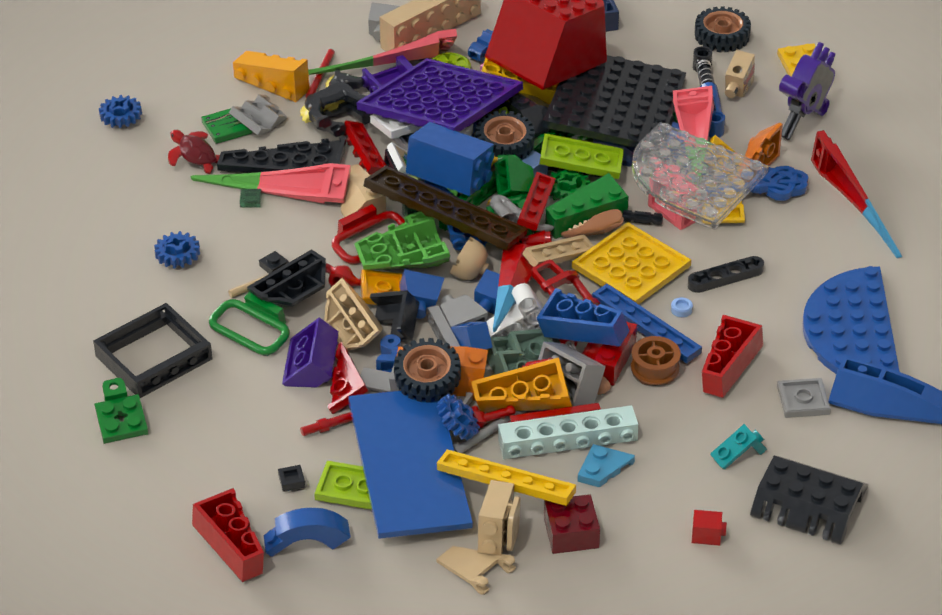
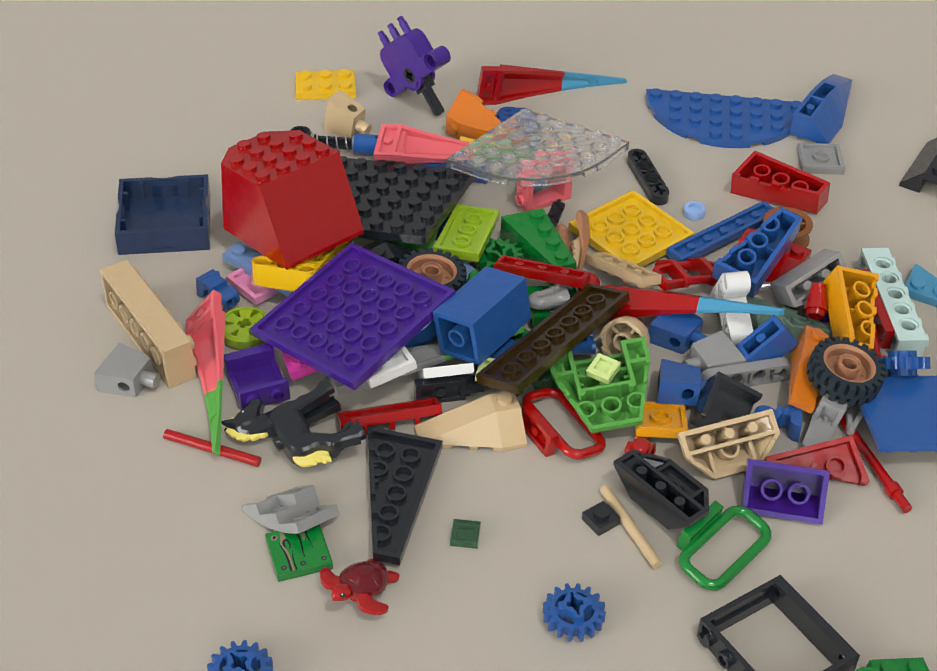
camera: 85 degrees left, 0 degrees up
(274, 74) = (212, 486): light orange wedge -> none
(311, 183) = (458, 465): coral plate -> none
(418, 240) = (603, 368): none -> yellowish green tile
(722, 29) = (247, 118): black wheel -> none
(736, 445) = (899, 198): teal bracket -> none

